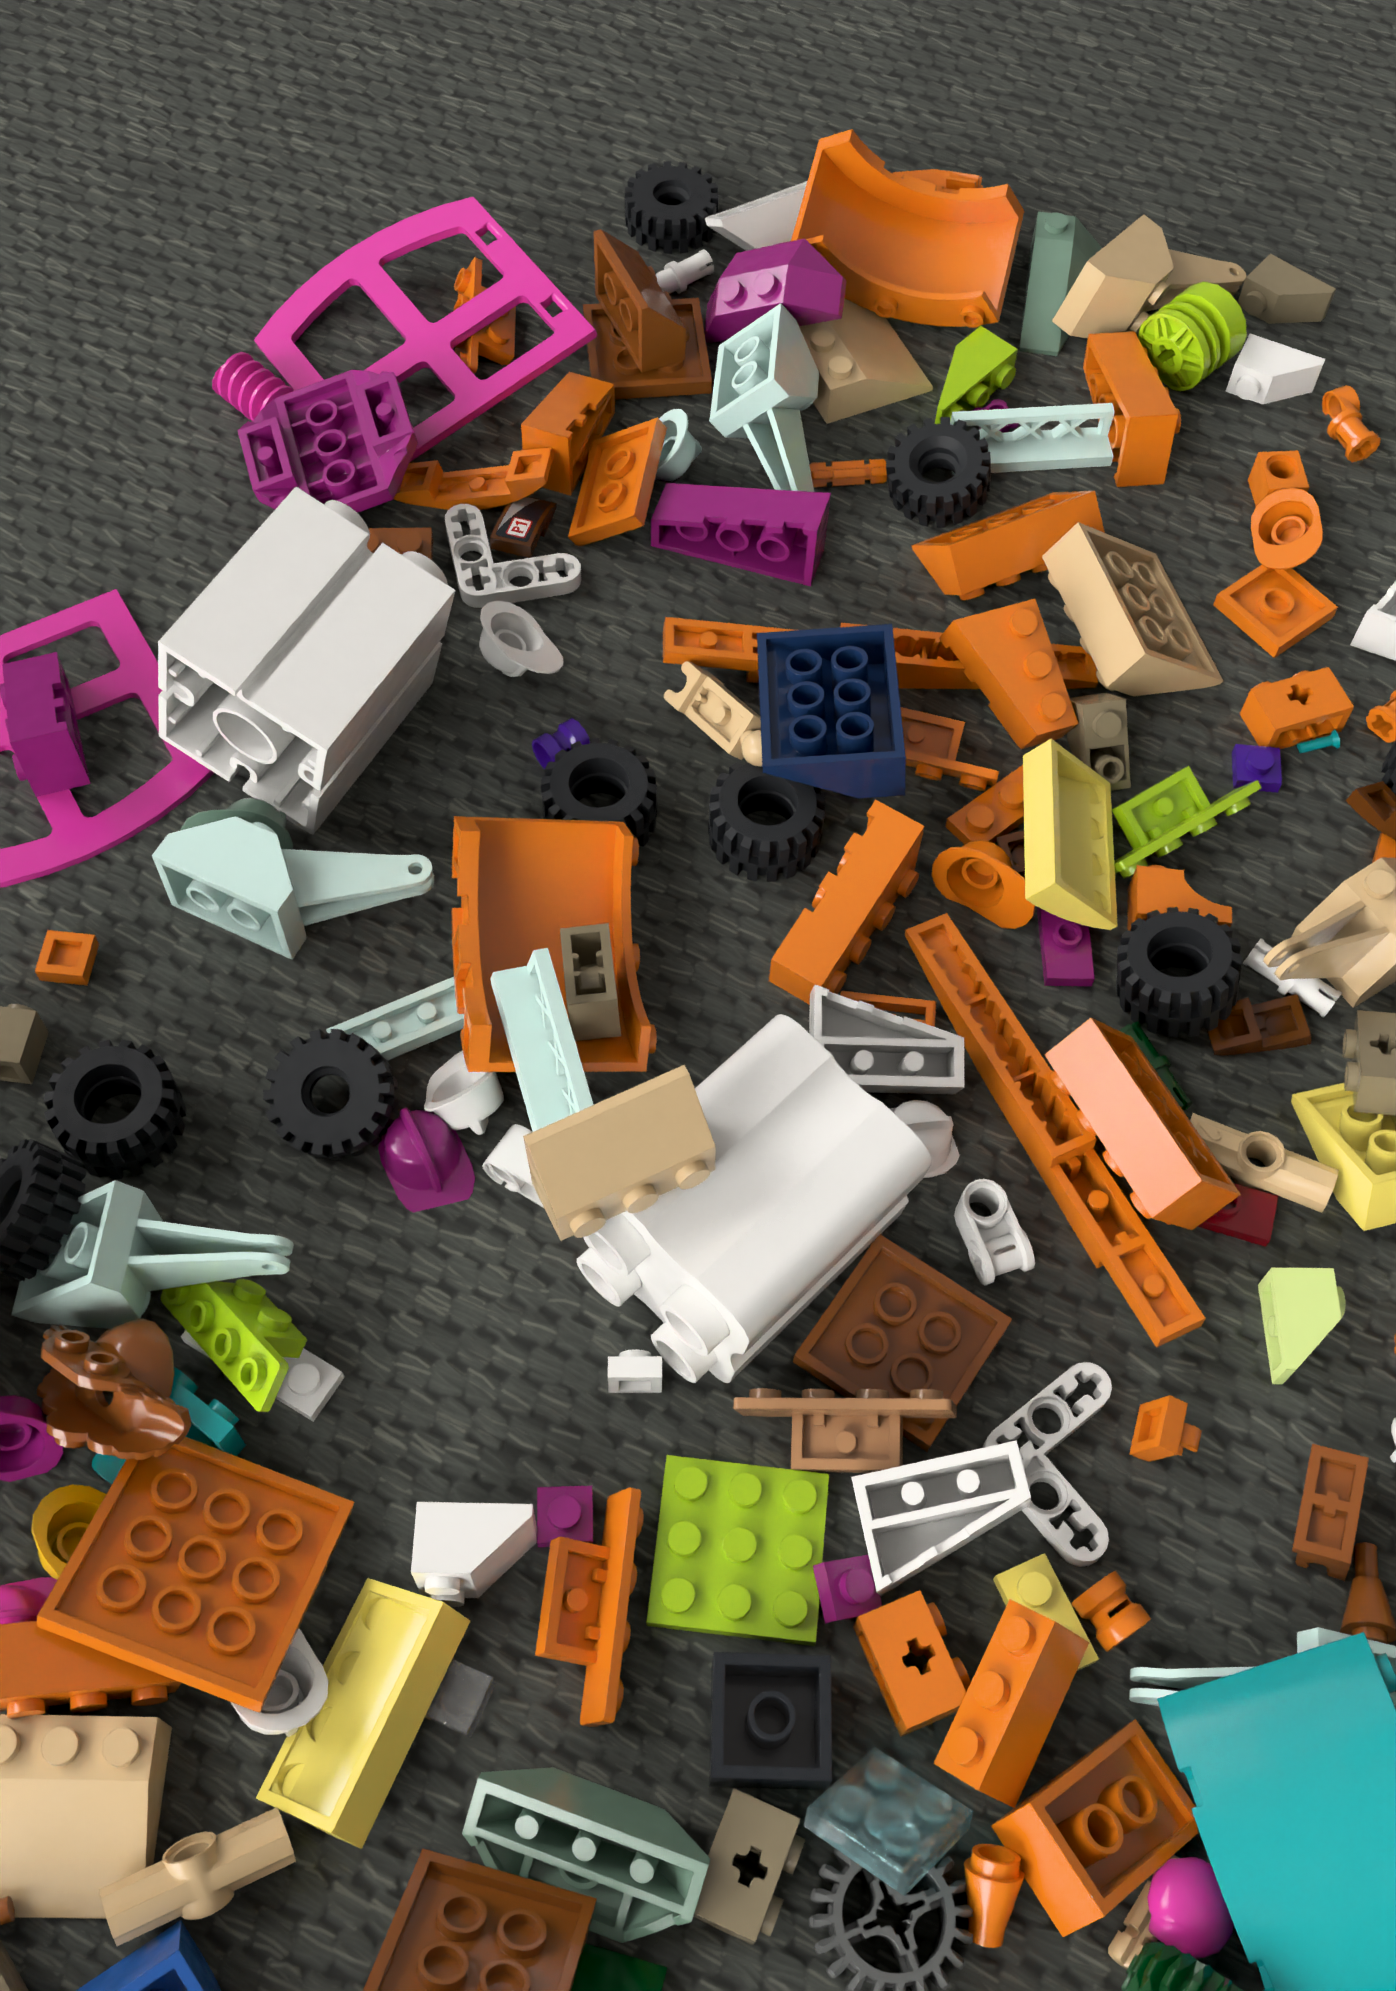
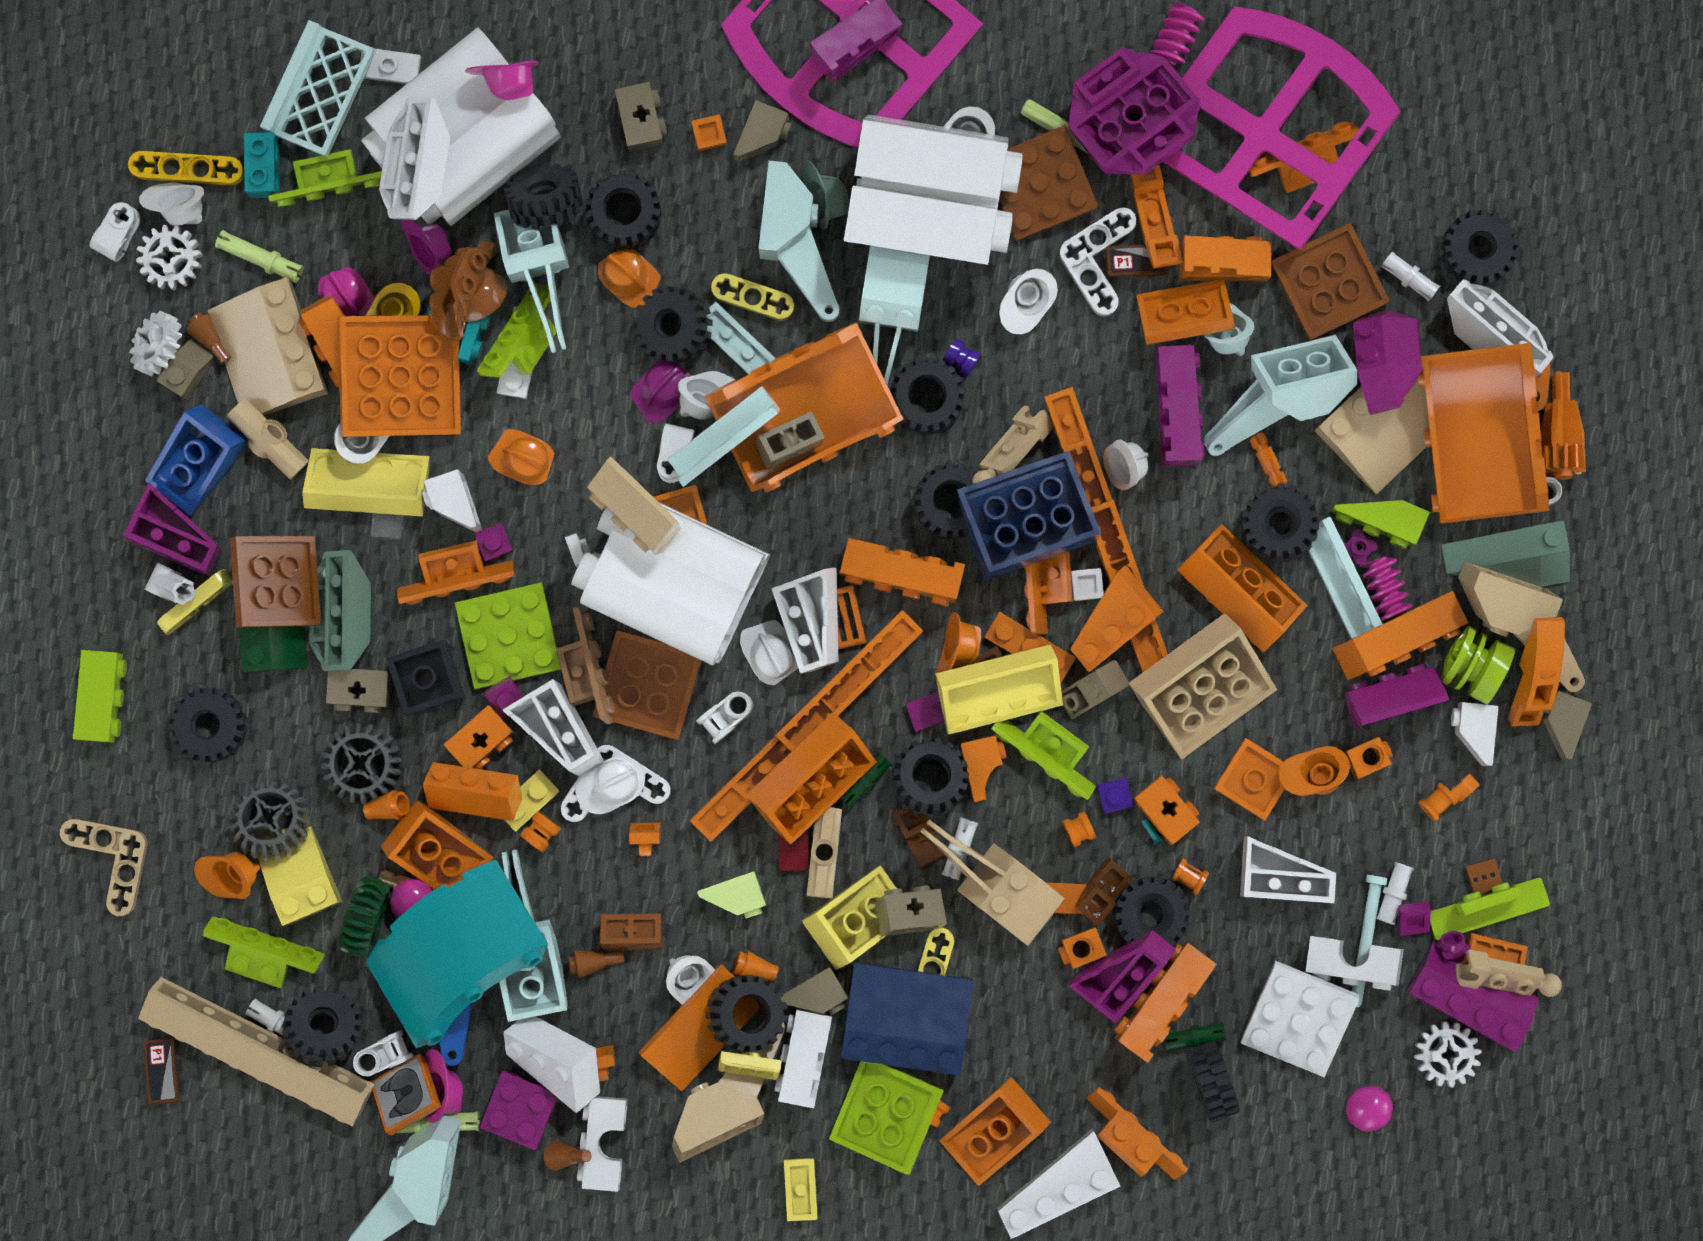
camera: 75 degrees right, 25 degrees up
(104, 883) = (762, 131): none -> dark tan slope
(224, 1148) = (628, 276): none -> orange piece
(344, 964) = (748, 285): none -> light yellow beam
(434, 768) = (893, 294): none -> light aqua slope
(438, 1419) = (522, 457): none -> orange piece
(637, 305) = (1347, 267): dark orange slope -> none
(797, 593) = (1125, 464): none -> white piece
(888, 1820) = (399, 748): clear light blue plate -> none
(946, 699) = (1087, 584): none -> white plate
(1061, 1458) = (610, 784): none -> white piece
(1062, 393) = (1386, 587): none -> dark pink piece
(1212, 426) = (1394, 695): none -> magenta slope
(1219, 260) = (1541, 671): none -> orange slope
(1299, 818) = (1079, 829): none -> orange wheel

